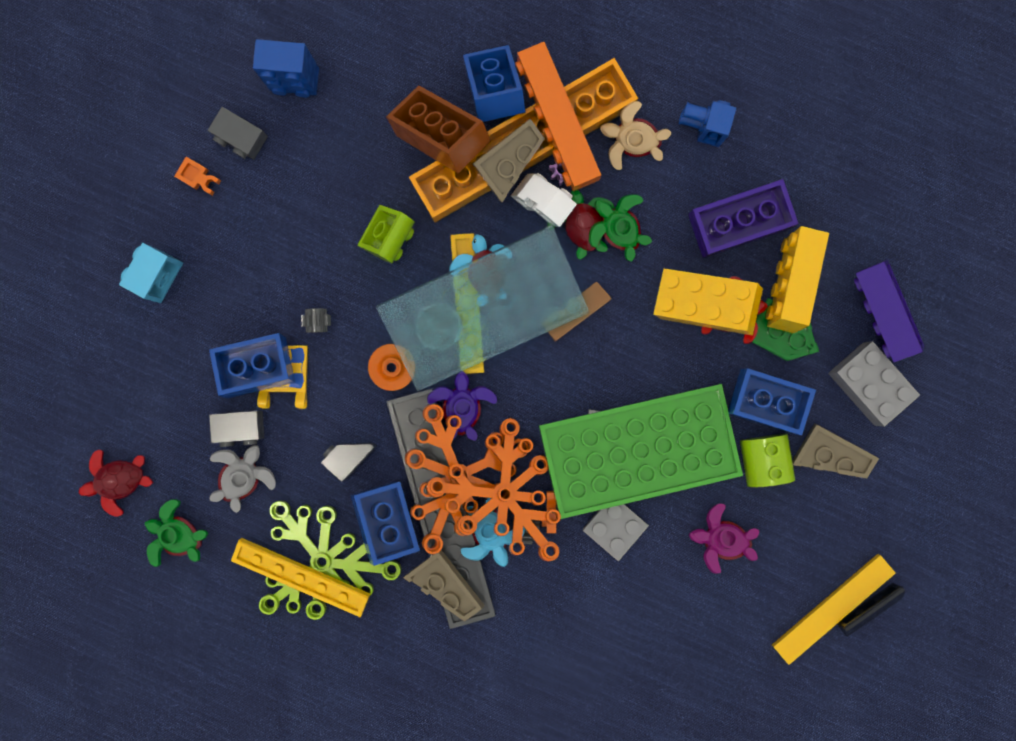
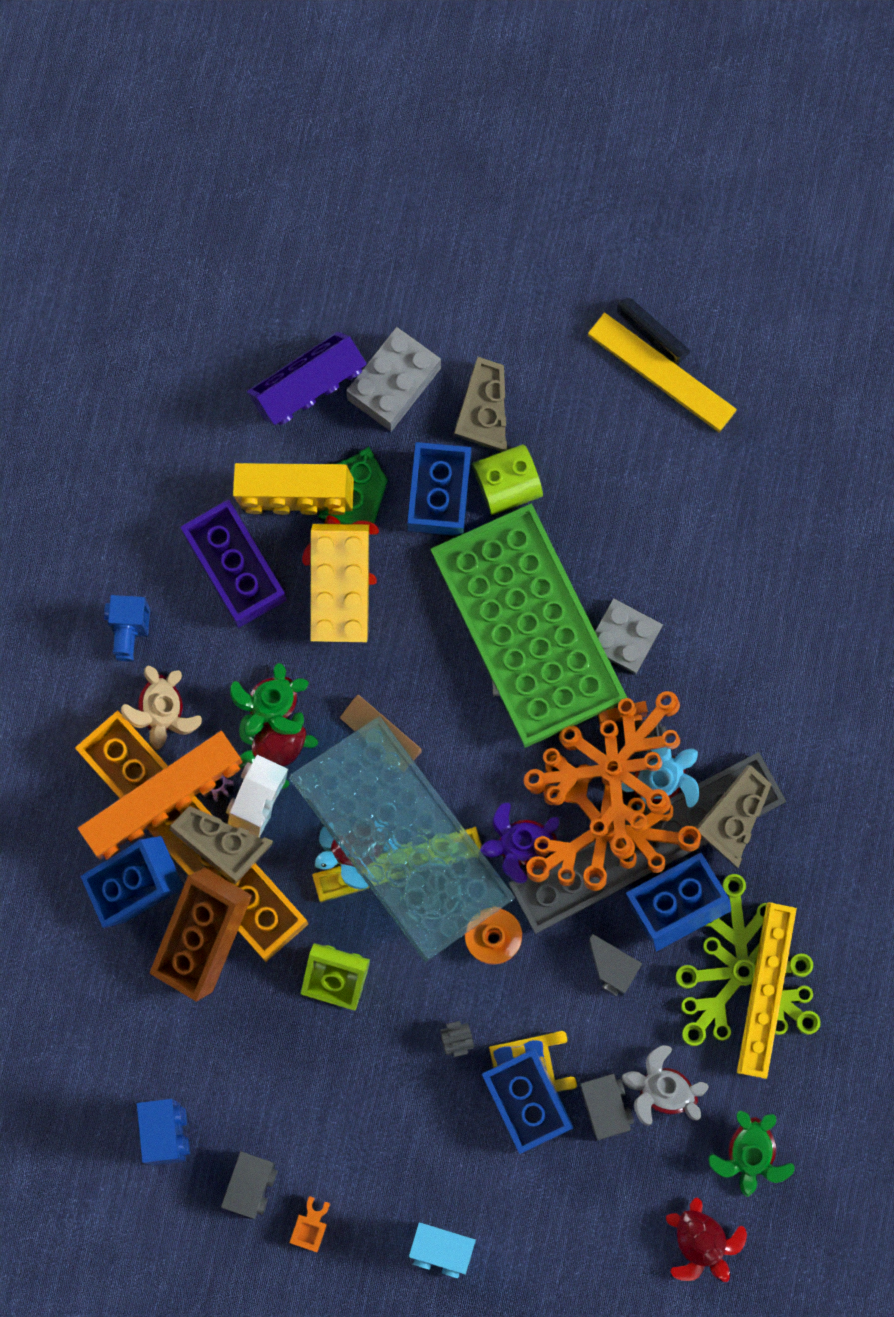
camera: 105 degrees left, 10 degrees down
(724, 540) = (610, 510): magenta animal -> none

